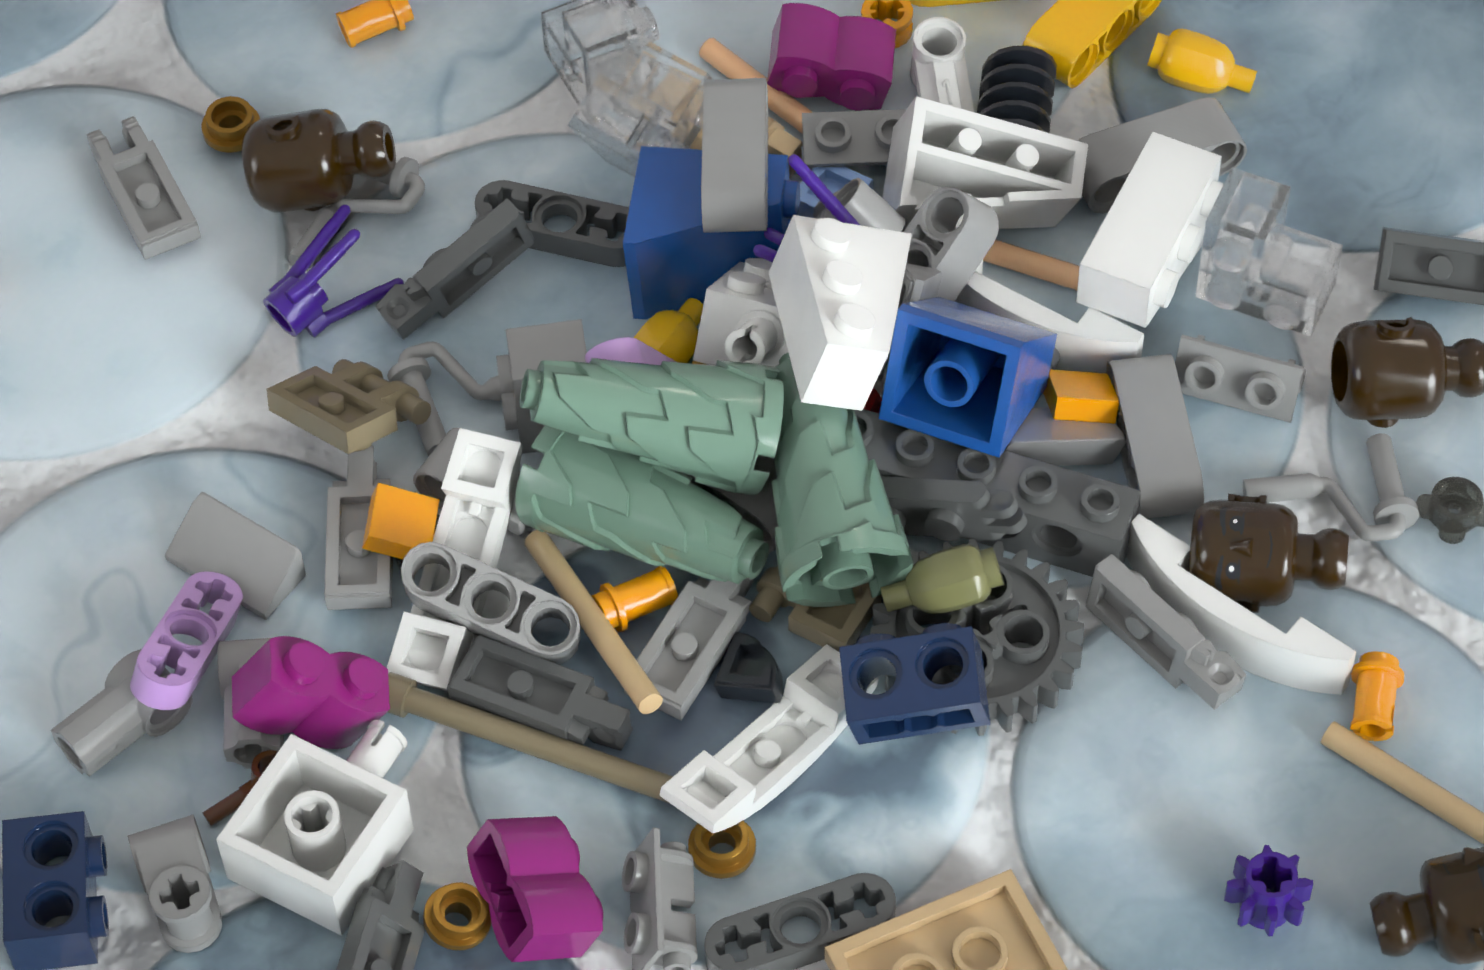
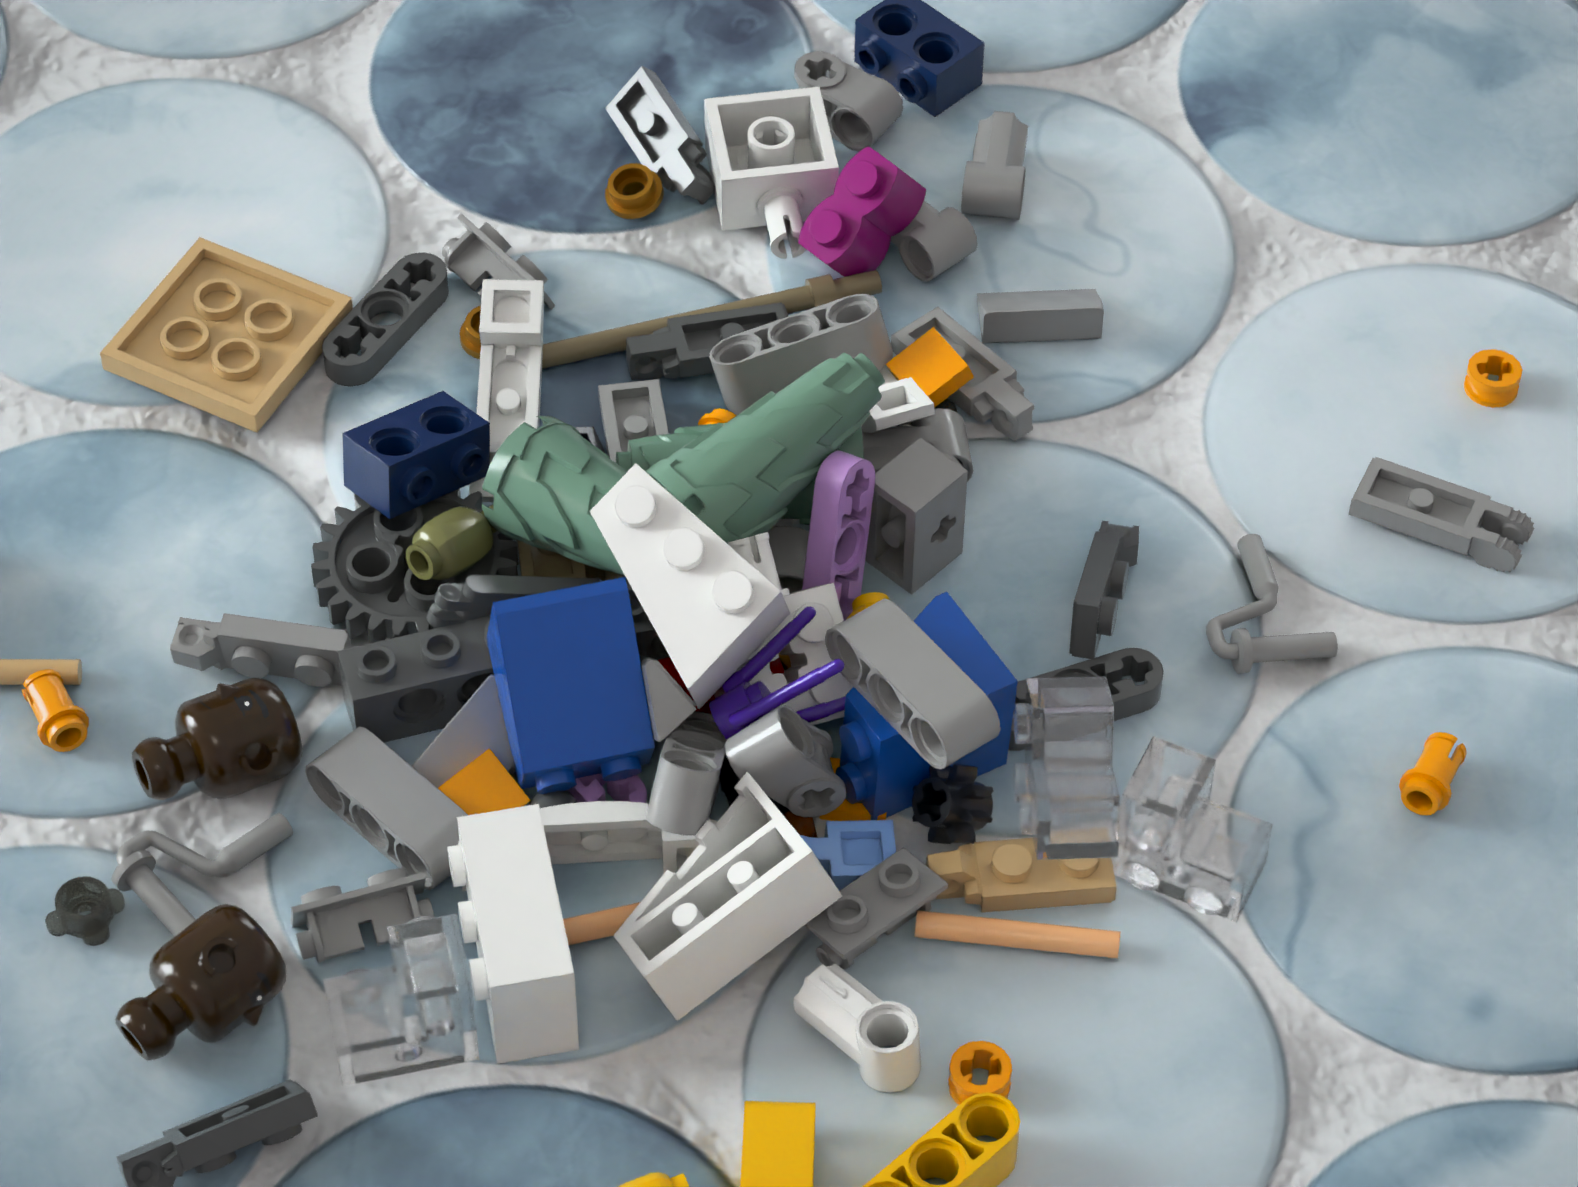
camera: 140 degrees right, 5 degrees down
(187, 660) = (995, 171): lavender beam -> none
(227, 123) = (1435, 608): pearl gold plate -> none
(298, 298) = (1201, 499): dark purple plant -> none
(311, 158) = (1317, 583): dark brown piece -> none
(347, 406) = (1071, 413): dark tan plate -> none
(415, 370) = (1054, 500): light grey piece -> none
(534, 888) = (587, 215): magenta brick -> none
(594, 622) = (675, 379): tan bar -> none
(831, 56) = (981, 972): magenta brick -> none
(1018, 86) = (767, 1032): black piece -> none
(1117, 148) = (597, 1078): light grey beam -> none
(1264, 908) = (46, 514): dark purple gear -> none
(1299, 659) = (135, 692): white slope -> none

